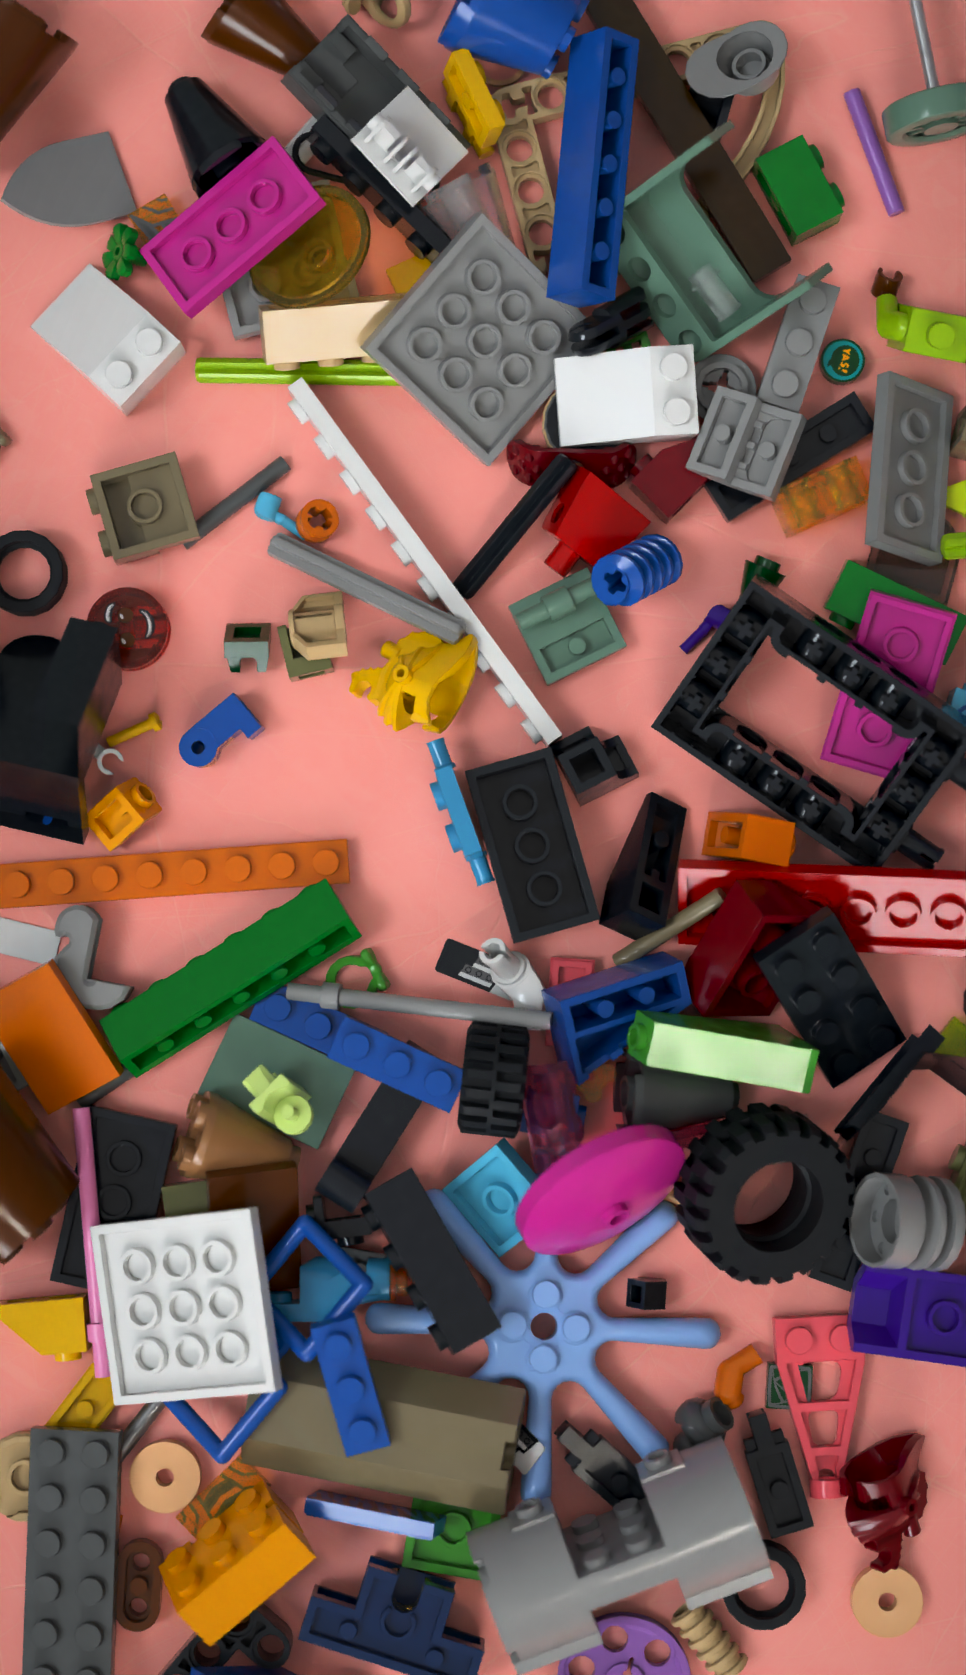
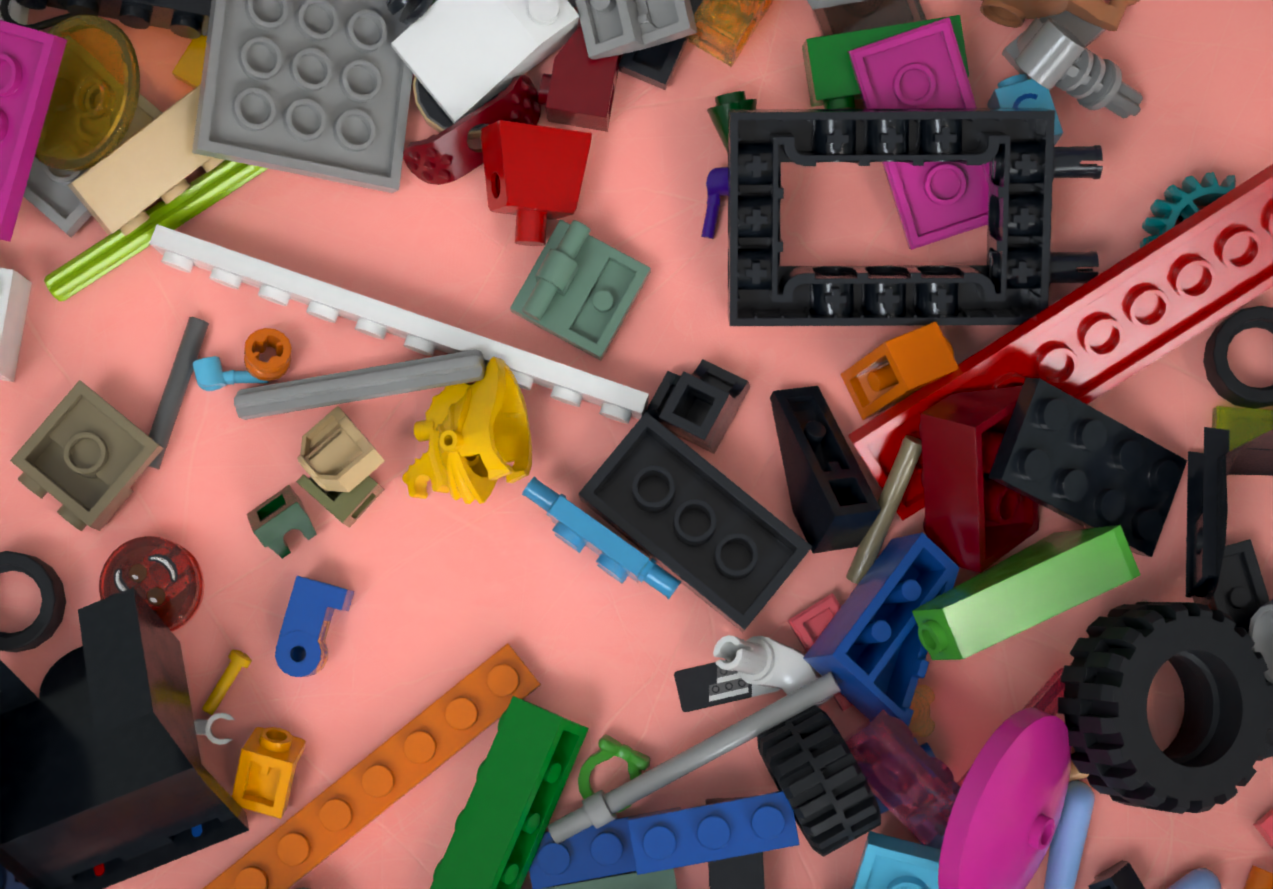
camera: 30 degrees left, 5 degrees down
(515, 525) = (463, 225): black axle -> none
(636, 570) = (610, 187): blue piece -> none
(669, 1096) = (999, 679): dark grey cone -> none

